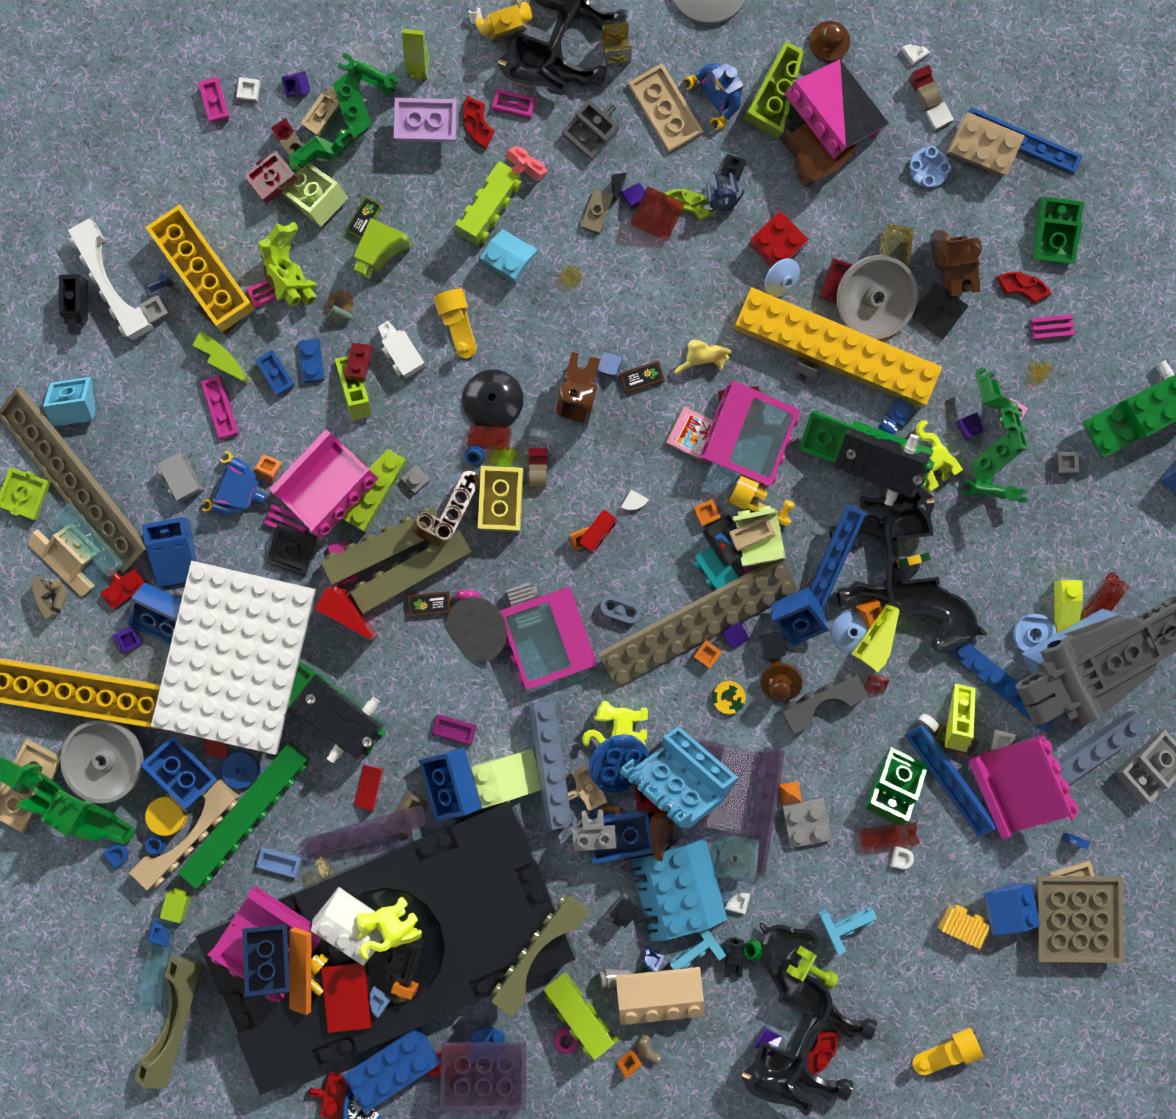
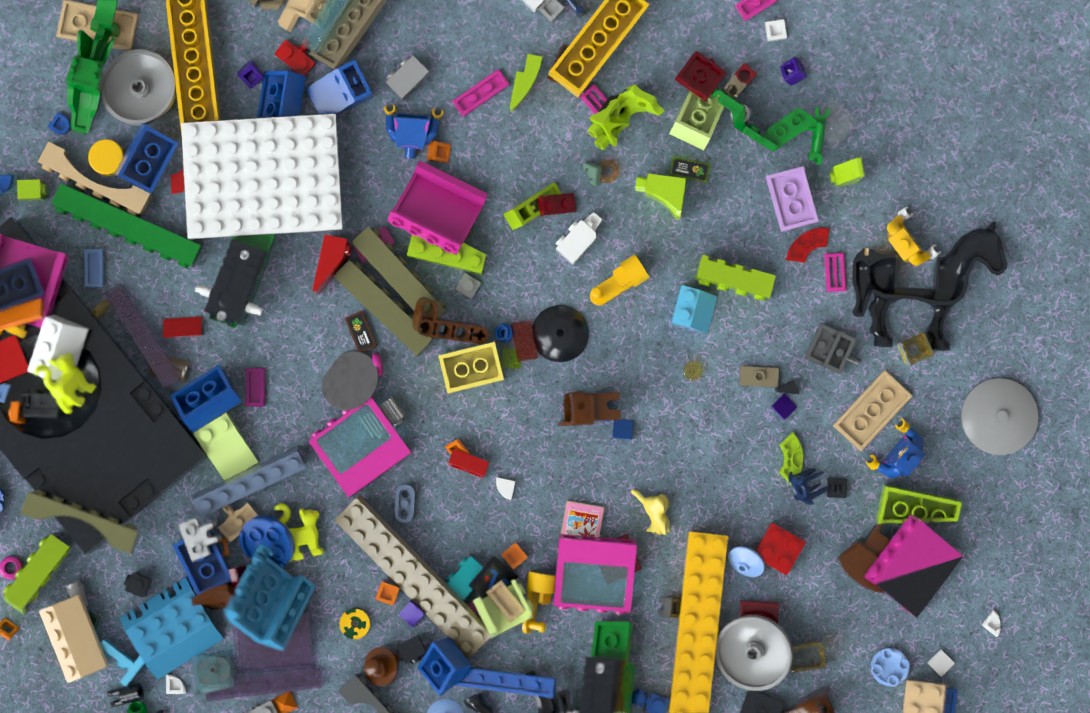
camera: 75 degrees right, 0 degrees up
(150, 849) = (72, 155): blue plate -> none
(240, 770) = (165, 209): blue piece -> none
(271, 515) = (398, 168): dark pink tile -> none
(275, 372) = (526, 132): blue plate -> none
(292, 549) = (372, 196): black plate -> none
(311, 360) = (547, 161): blue plate -> none
(321, 112) = (774, 102): tan hinge -> none
(525, 163) = (781, 299): coral plate -> none
(538, 467) = (510, 392): leg -> none
(642, 376) = (620, 461): tile -> none
(645, 1050) = (21, 640): dark tan arm -> none
(652, 959) = (103, 623): tile -> none
(657, 213) = (771, 432): clear red plate -> none
(829, 41) = (979, 542): reddish brown plate -> none
(925, 87) = (961, 642): leg -> none

